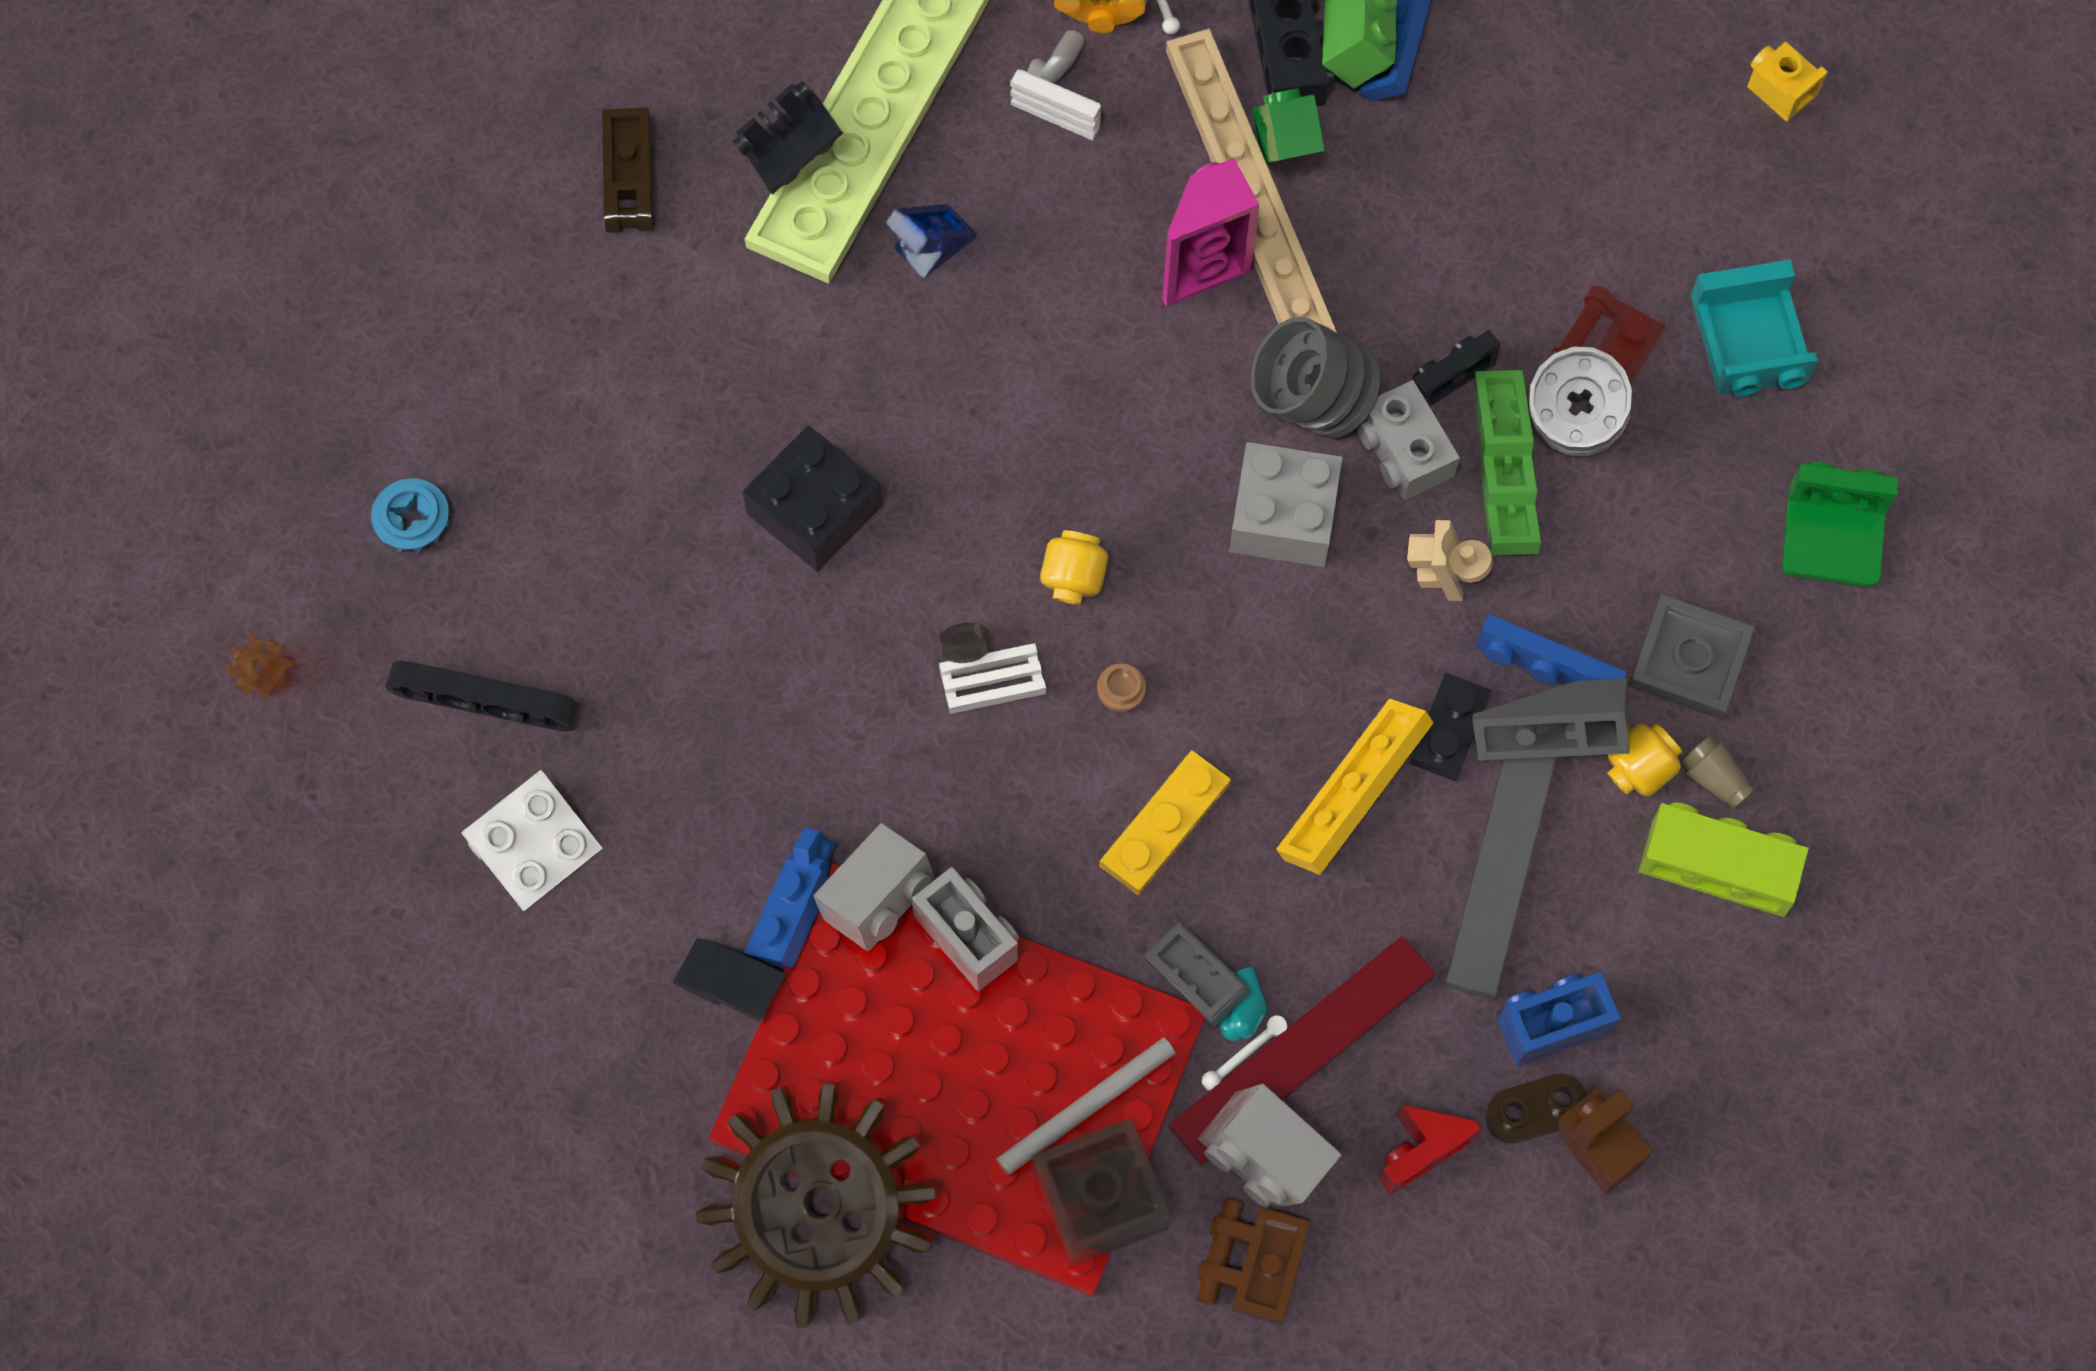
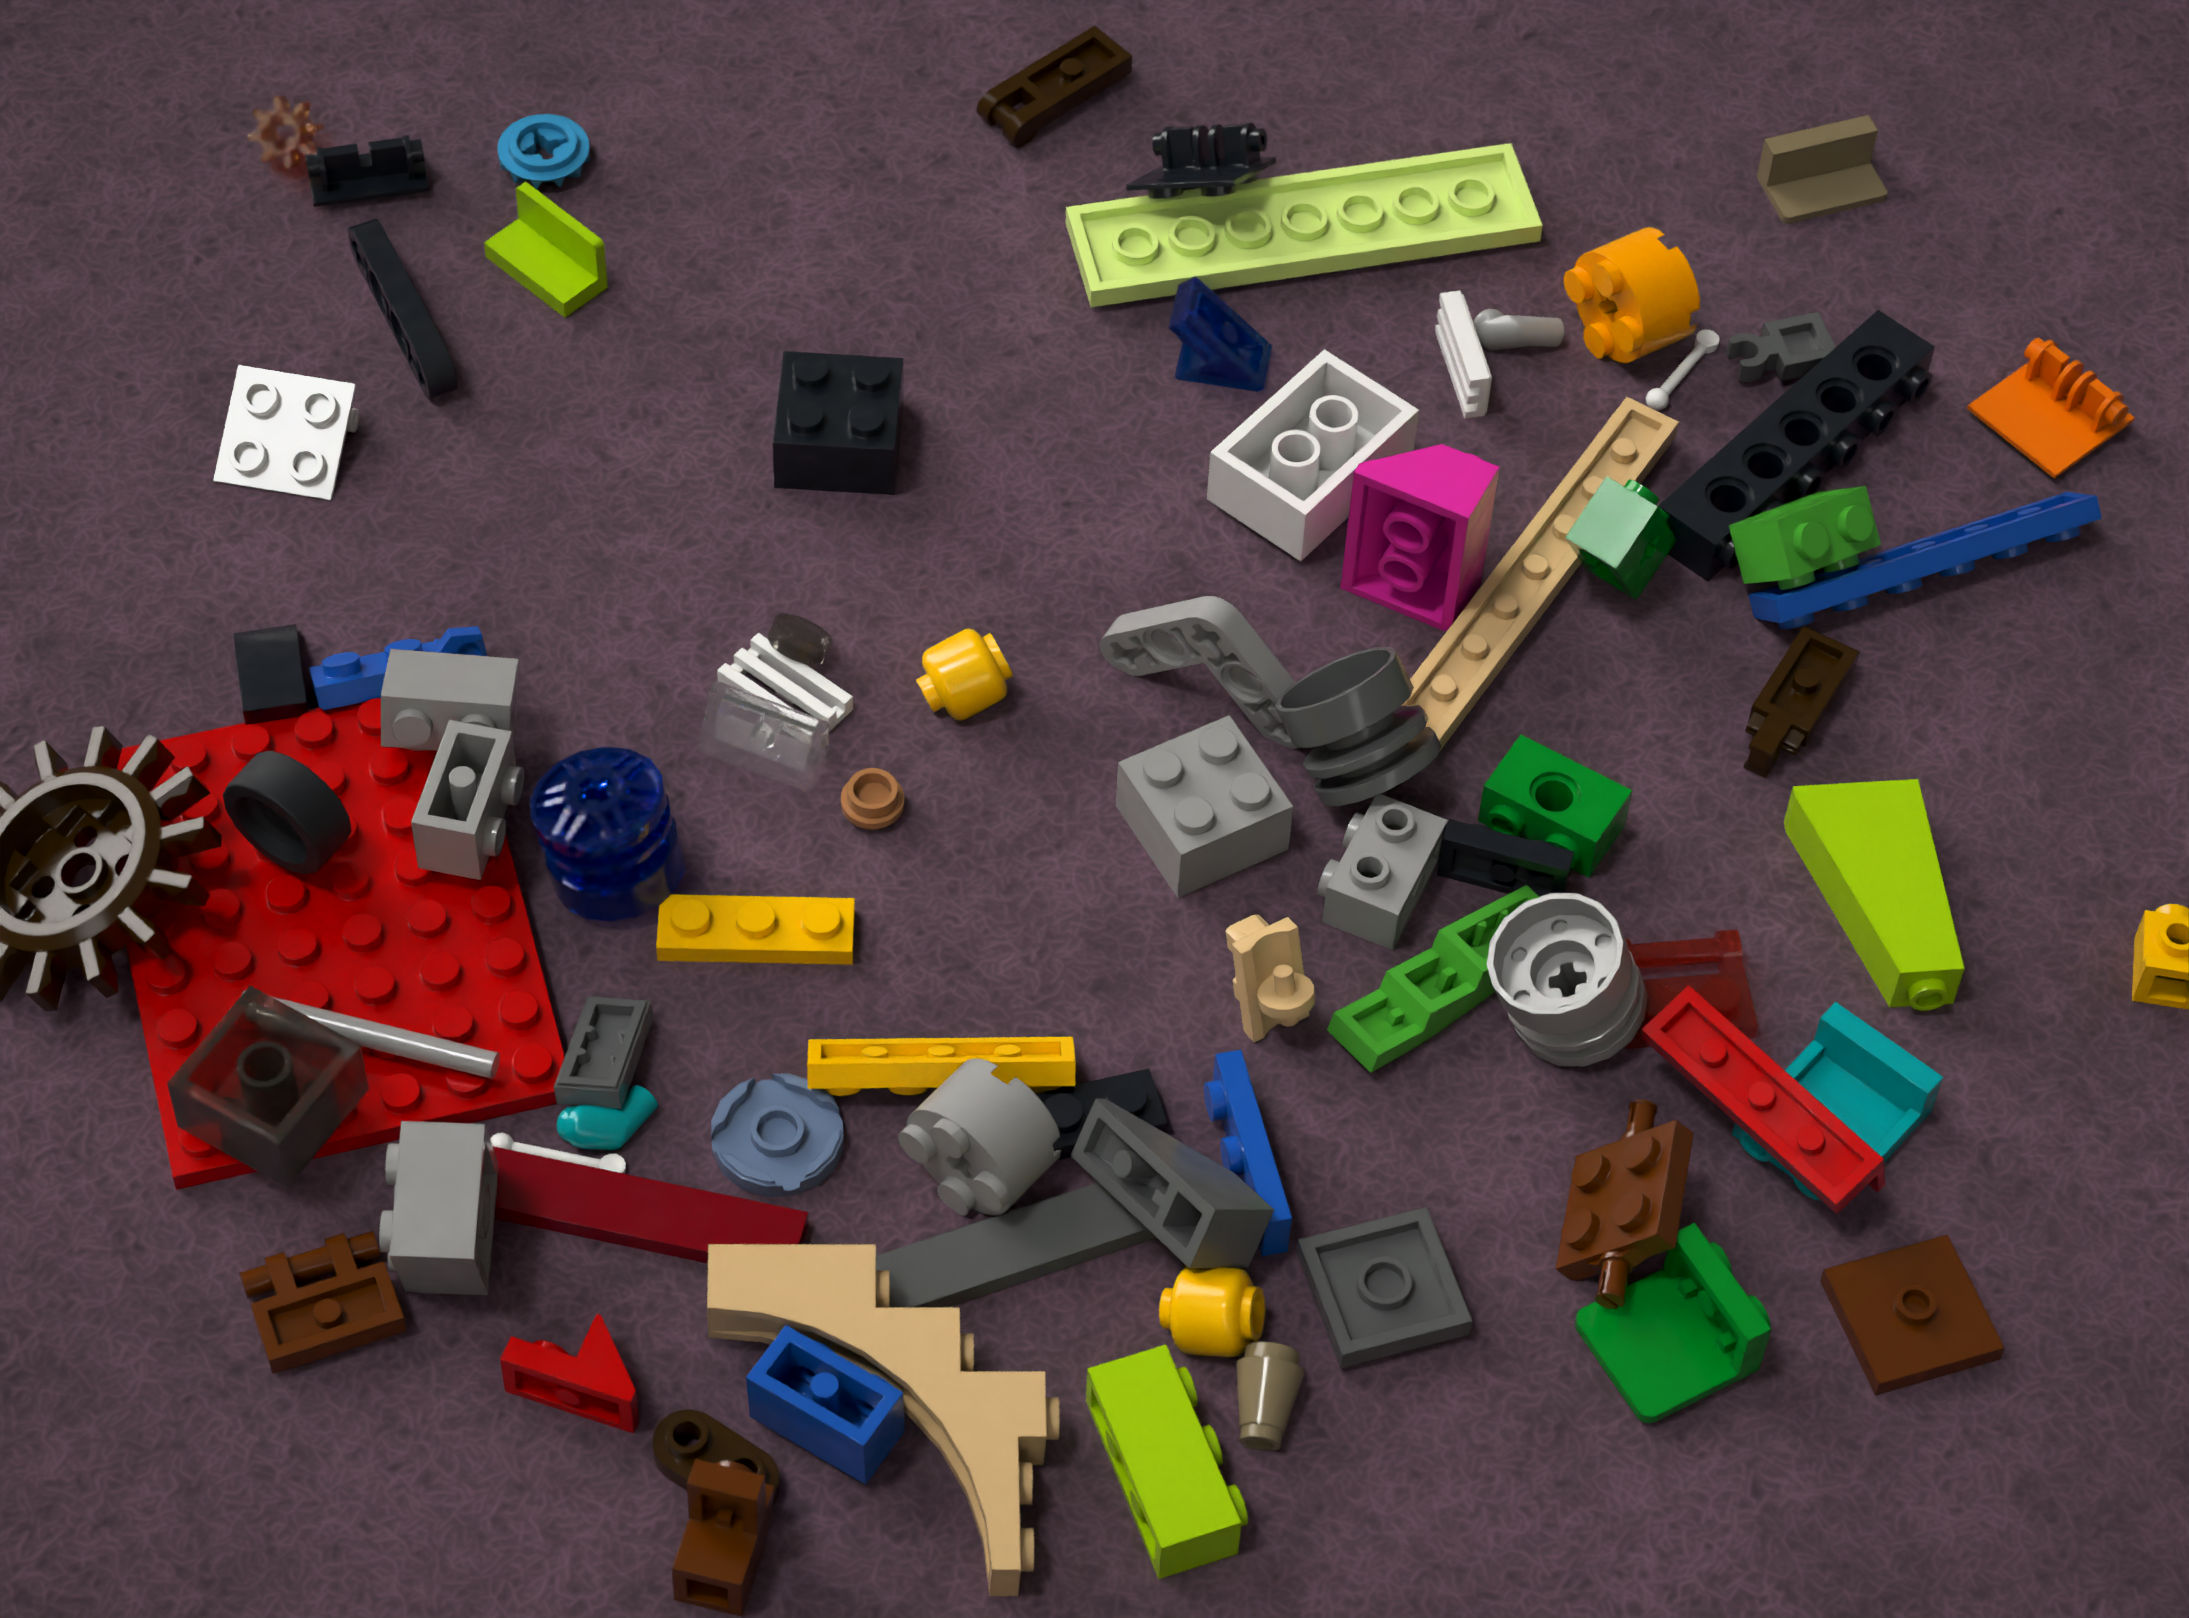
camera: 50 degrees right, 15 degrees down
(336, 639) = (346, 176): none -> black hinge
(510, 573) = (550, 253): none -> lime panel
(893, 1044) = (287, 812): none -> black tyre
(1026, 717) = (764, 737): none -> clear slope
(1071, 874) = (607, 833): none -> clear blue wheel
(1072, 247) = (1297, 454): none -> white brick
(1190, 406) = (1210, 634): none -> light grey beam
(1321, 931) = (778, 1156): none -> sand blue tile
(1443, 802) = (981, 1139): none -> light grey brick
(1450, 295) = (1555, 801): none -> green brick
(1457, 125) = (1797, 697): none -> dark brown hinge
(1569, 942) = (981, 1421): none -> tan arch
(1627, 185) = (1883, 882): none -> lime slope
(1740, 363) = (1764, 1100): none -> red panel
(1744, 487) = (1625, 1202): none -> reddish brown plate
(1907, 396) = (1911, 1314): none -> reddish brown plate

